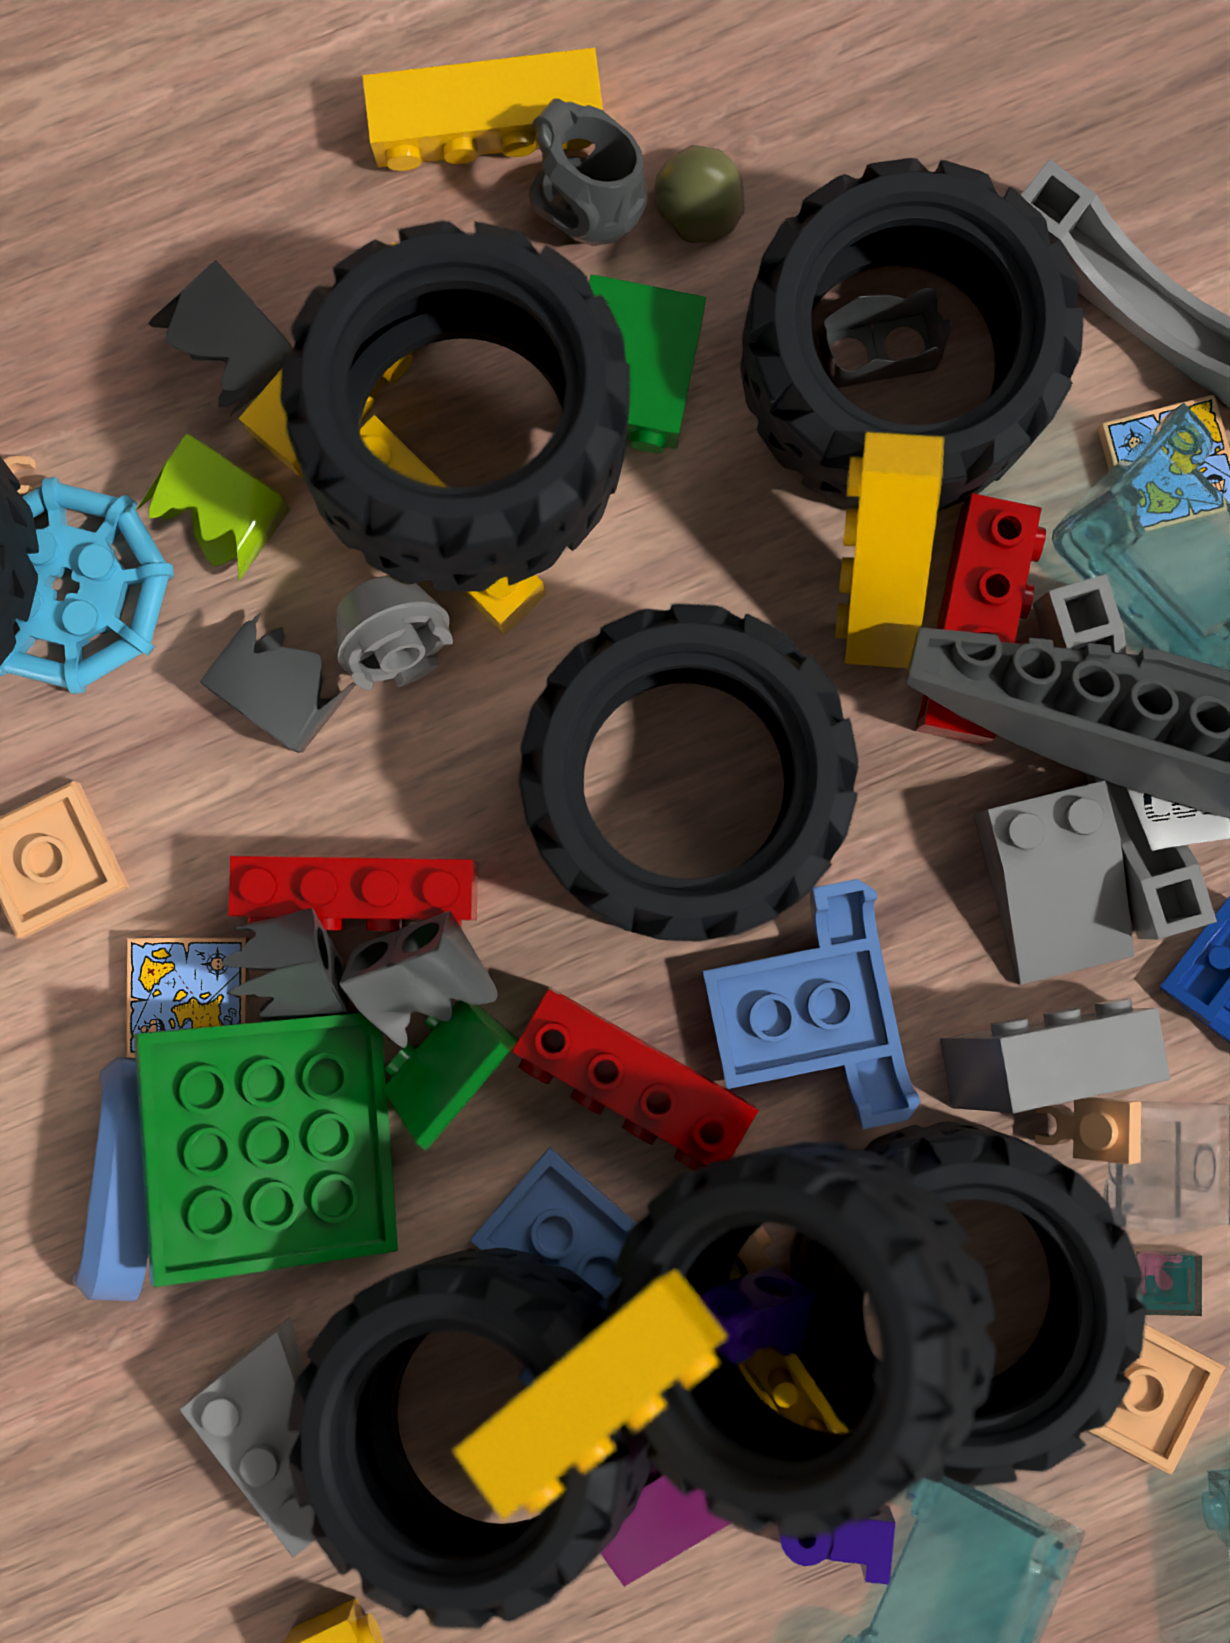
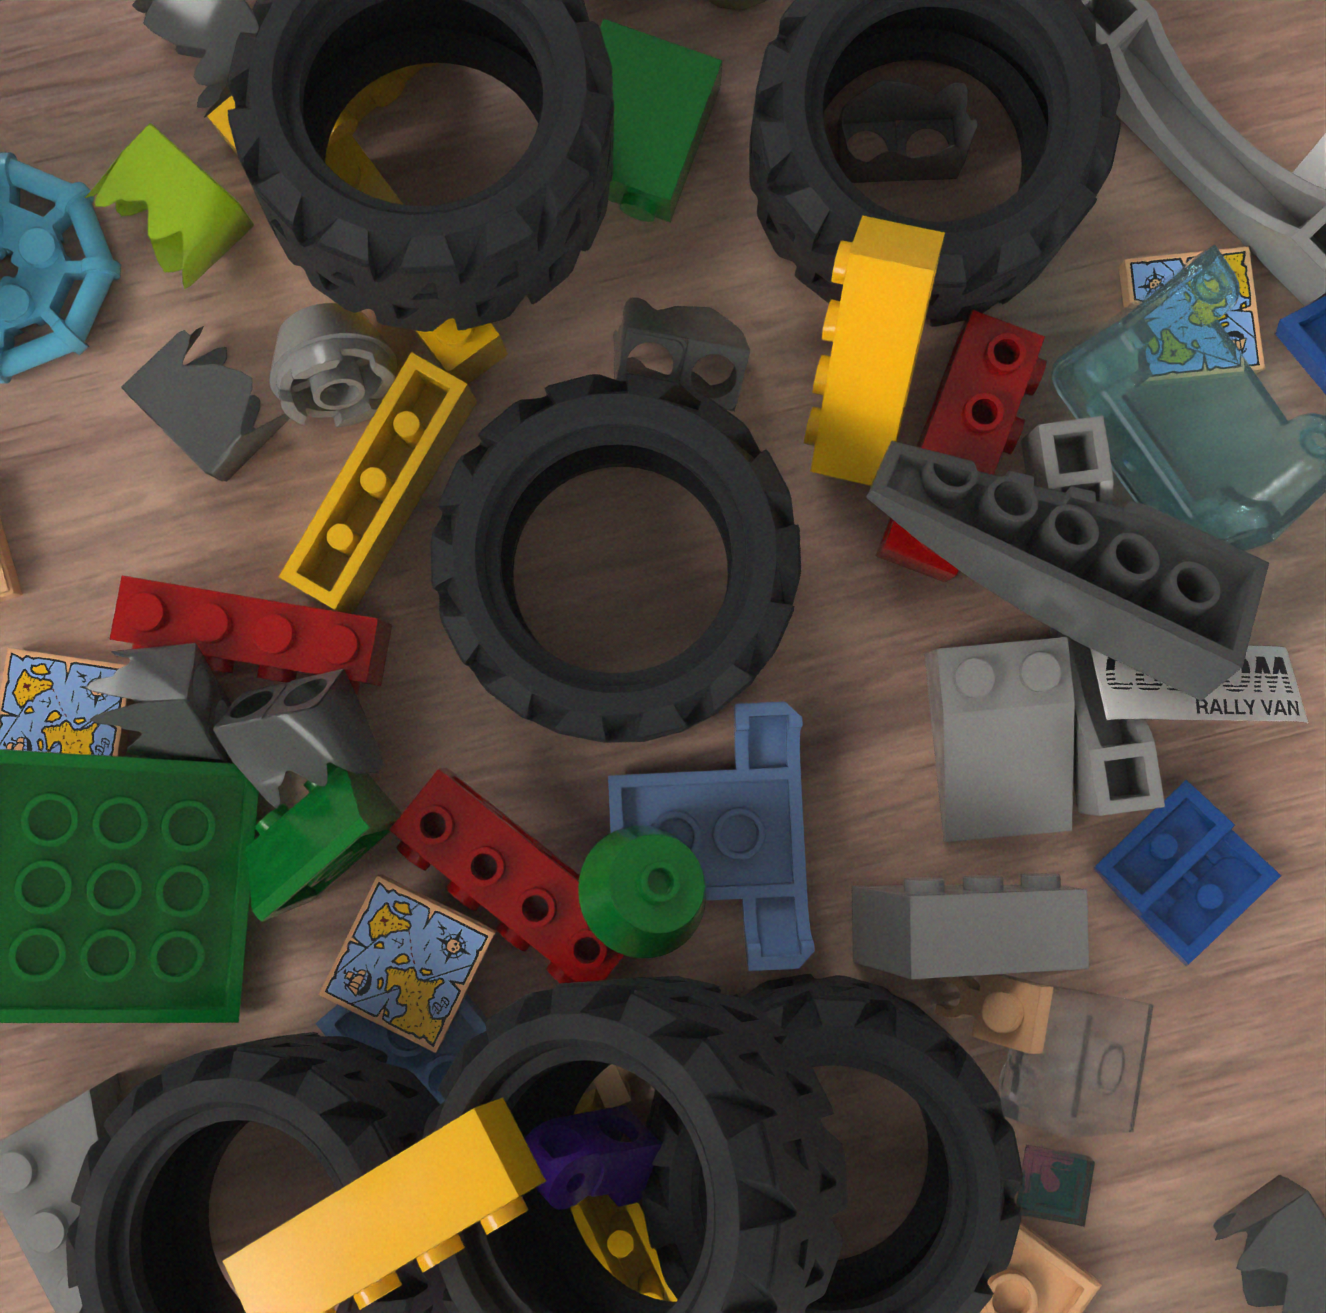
camera: 15 degrees right, 0 degrees up
(452, 735) = (380, 485): none -> yellow brick
(548, 1171) = (407, 963): none -> tile
(699, 552) = (707, 334): none -> dark grey piece
(755, 1072) = (642, 891): none -> green cone

